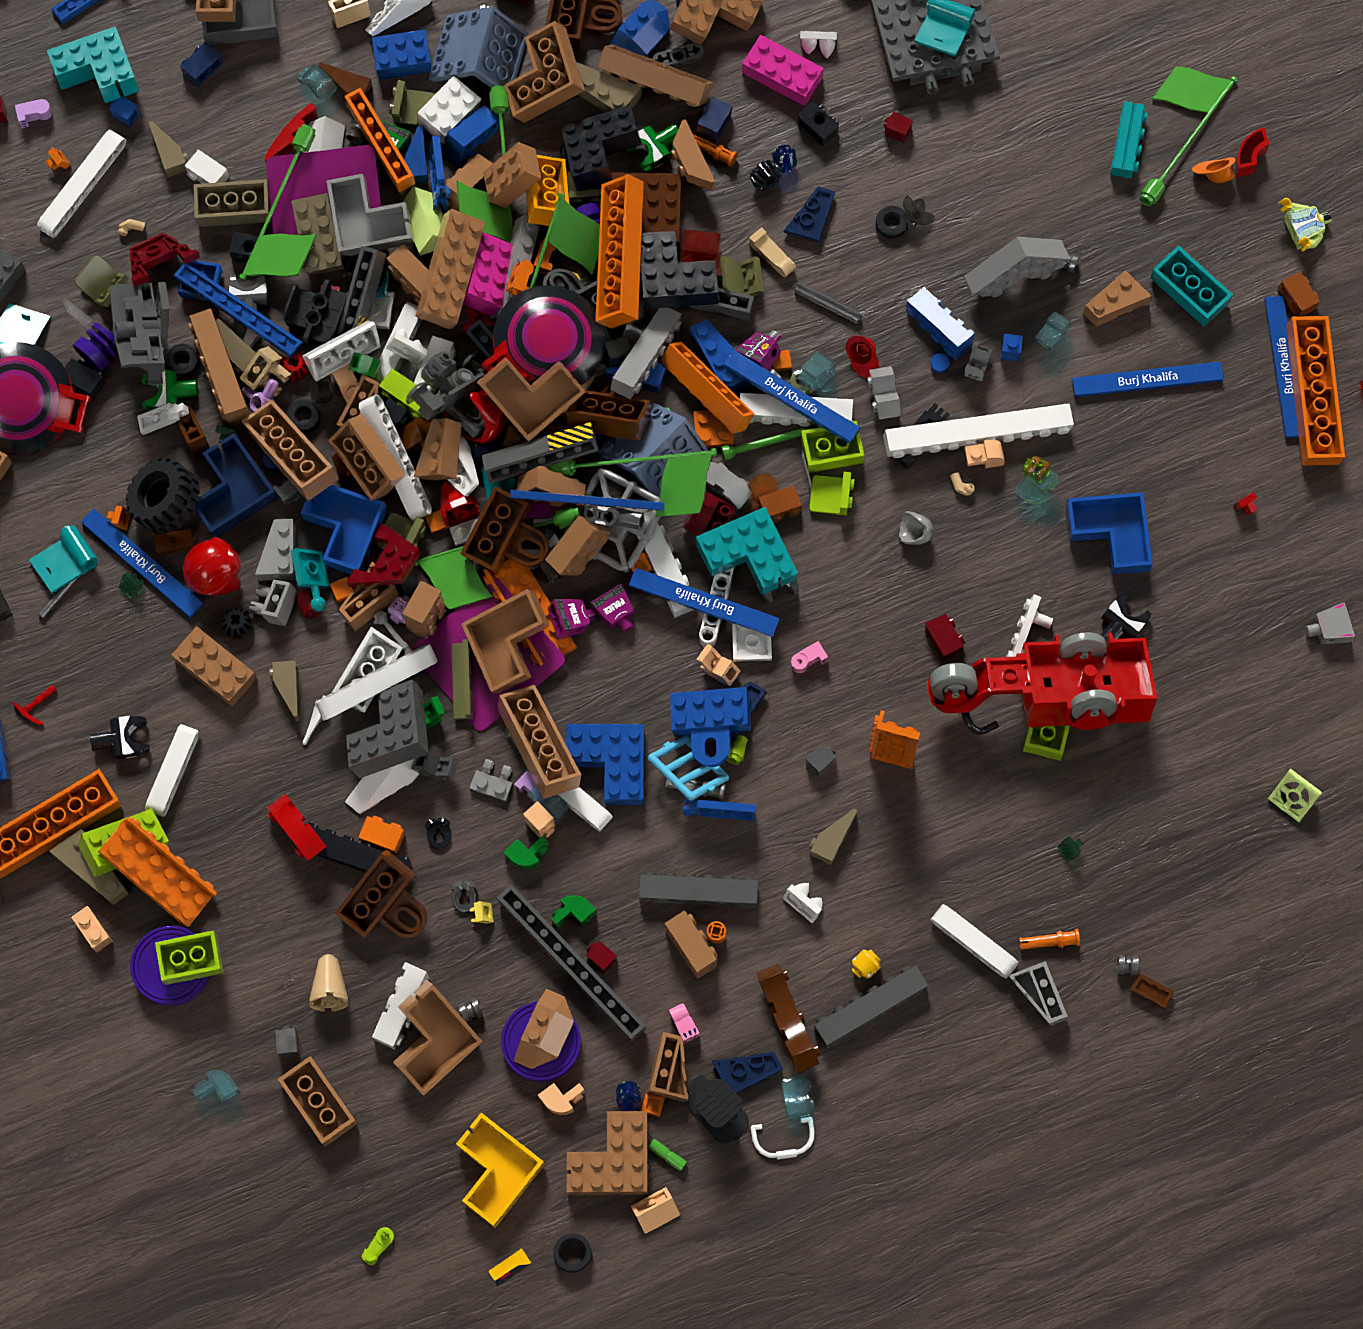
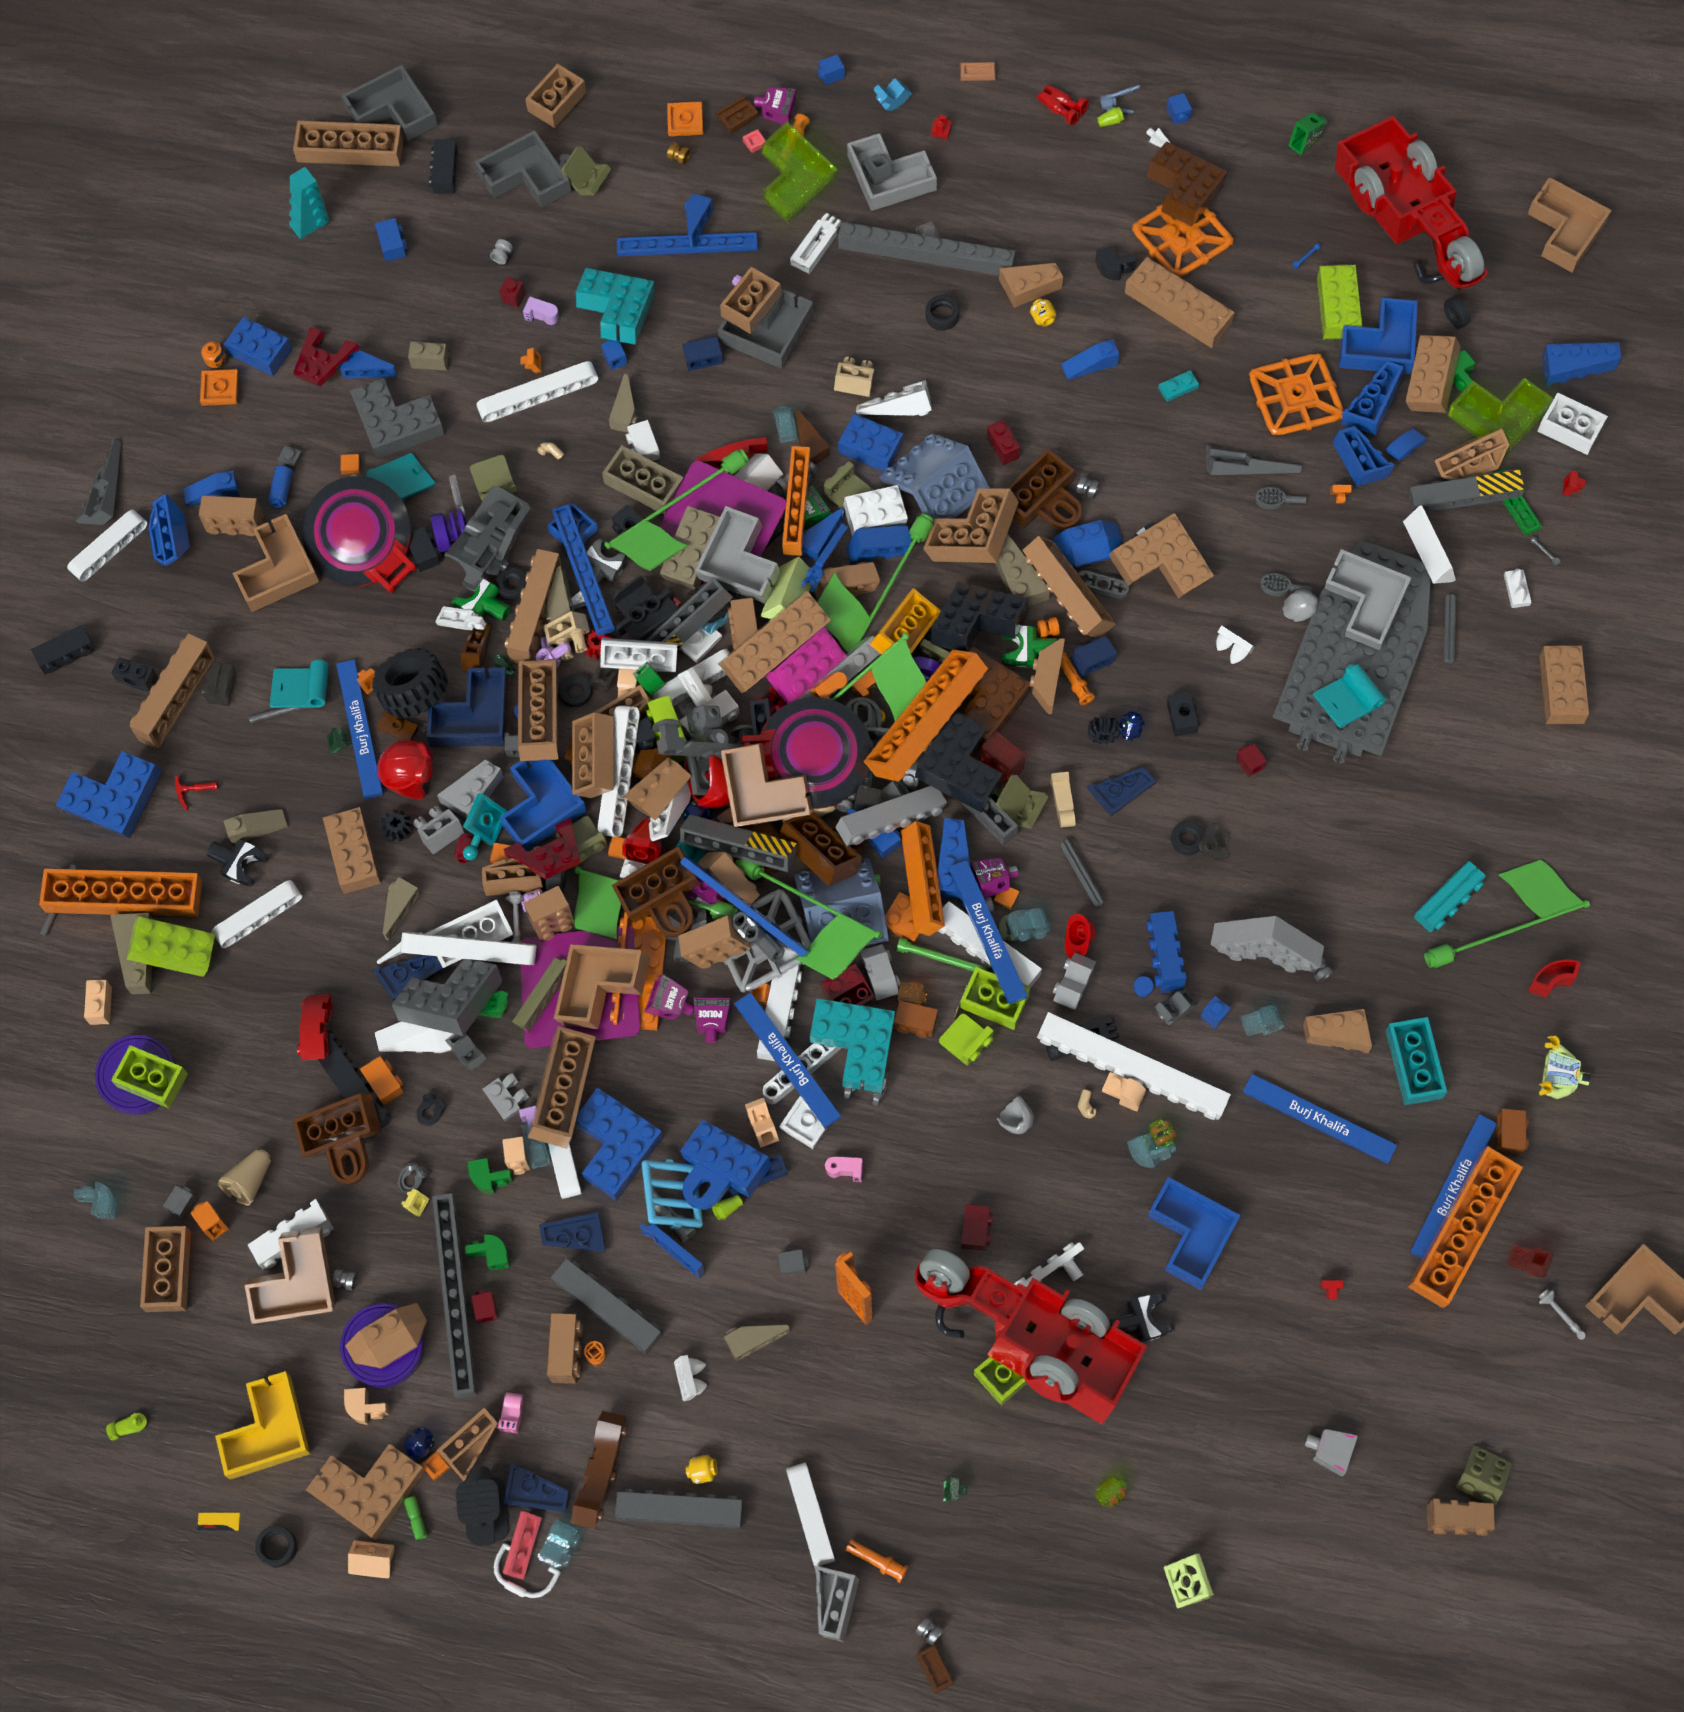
camera: 35 degrees right, 5 degrees down
(113, 699) = (254, 825): none -> dark tan slope
(155, 251) = (553, 481): dark red wing -> none
(157, 871) = (177, 988): orange bracket -> none
(325, 1038) = (209, 1220): none -> orange brick
(333, 743) = (397, 976): none -> dark blue wing
(512, 175) = (883, 595): medium nougat brick -> none
(630, 851) = (574, 1233): none -> dark blue wing
(659, 119) = (1048, 627): none -> orange wheel
(768, 1117) = (522, 1545): none -> coral plate
(782, 70) = (1183, 650): dark pink brick -> none
(1190, 768) = (1111, 1492): none -> clear neon green head
(1216, 170) = (1512, 973): orange piece -> none

